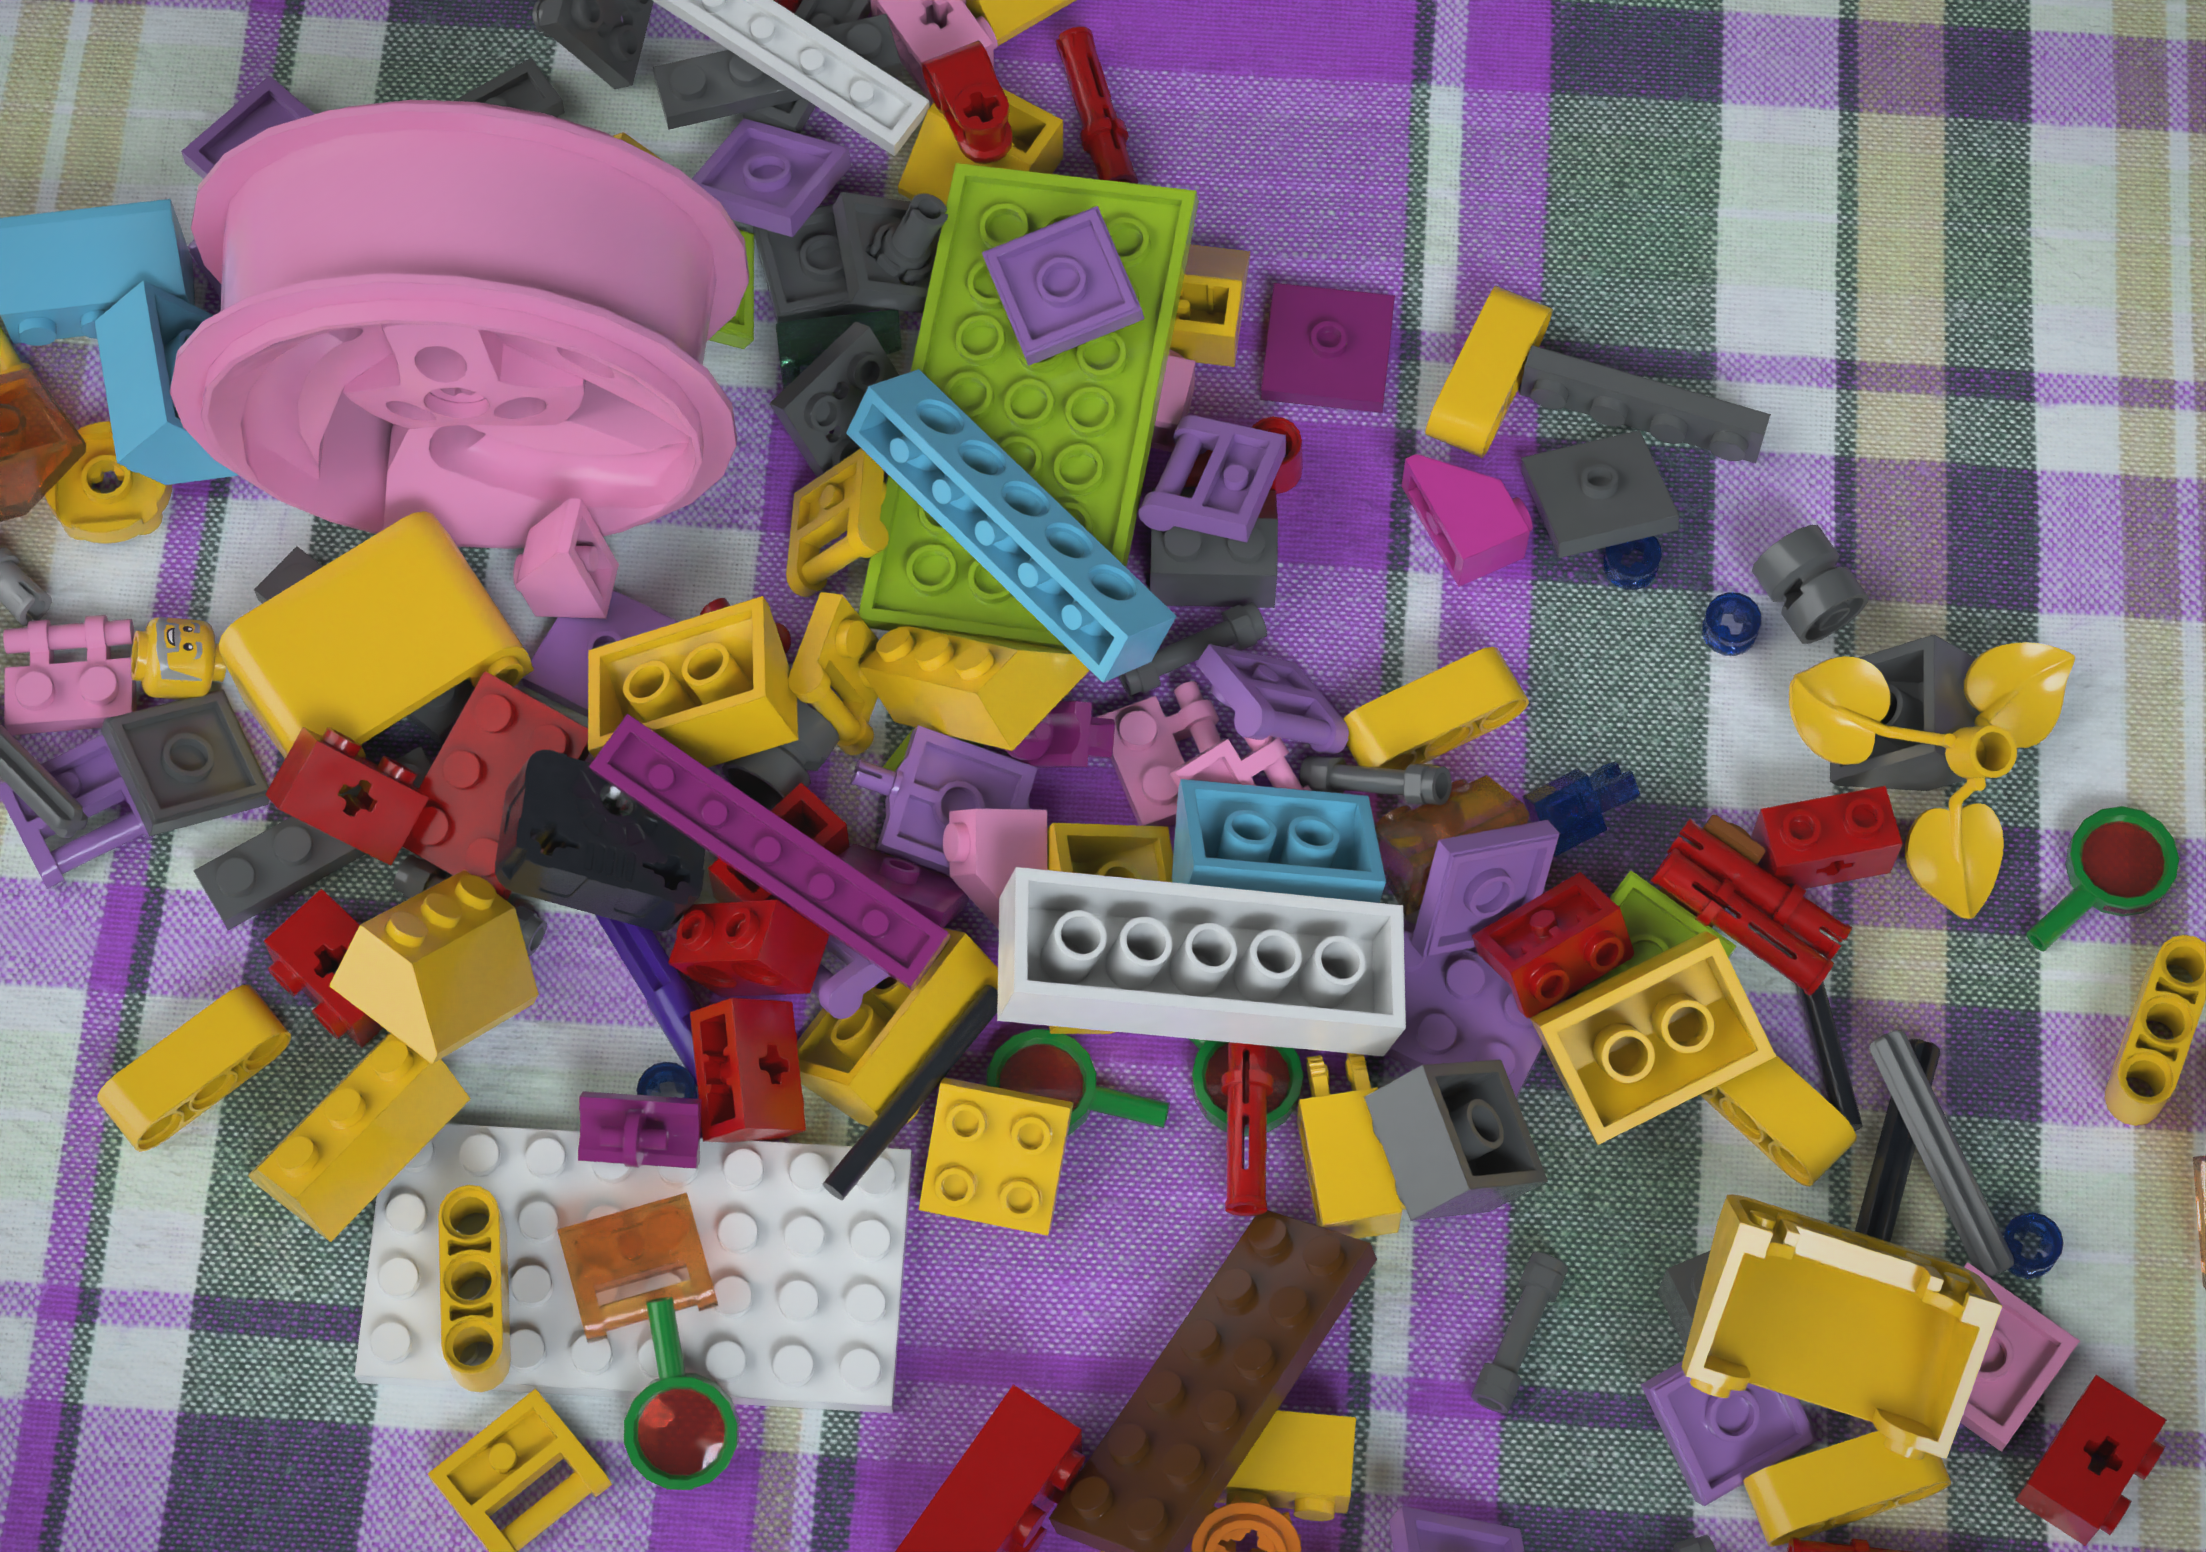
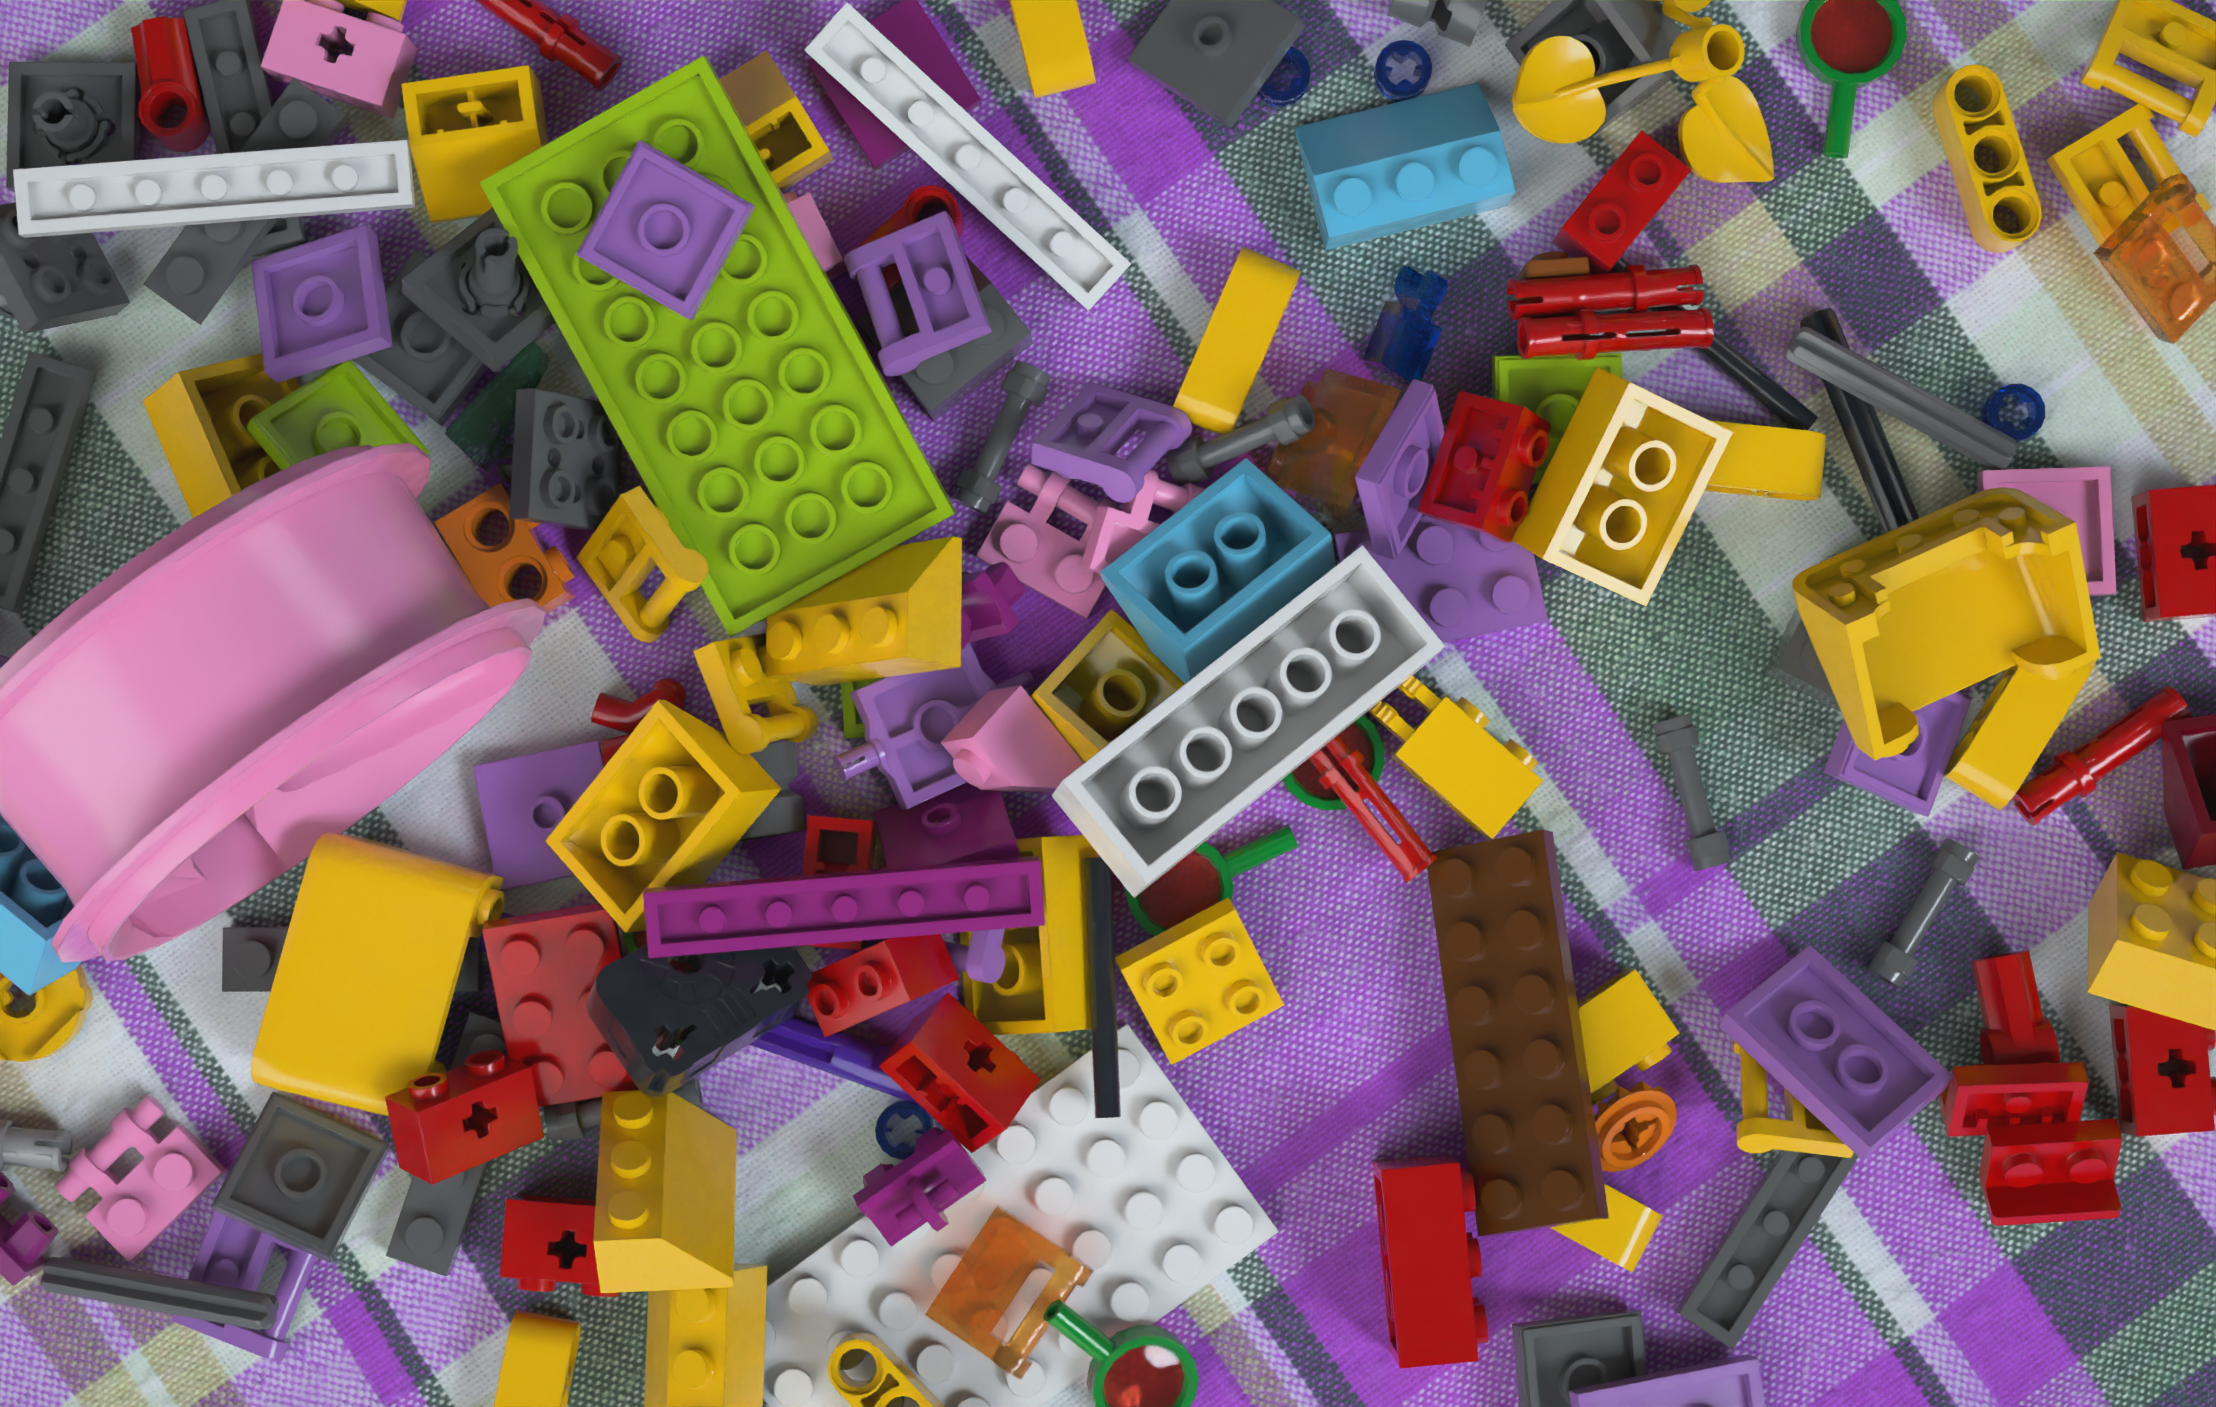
camera: 35 degrees left, 20 degrees up
(176, 658) = (216, 1101): yellow head -> none
(566, 565) = (462, 782): bright pink slope -> none
(756, 454) = (494, 567): none -> orange brick
(971, 101) = (437, 112): red piece -> none
(1011, 525) = (798, 476): medium azure brick -> none
(1338, 430) = (967, 156): none -> white plate
(1455, 1139) = (1541, 693): dark grey brick -> none
(1467, 517) = (1128, 148): dark pink slope -> none
(1672, 693) = (1405, 166): none -> medium azure slope

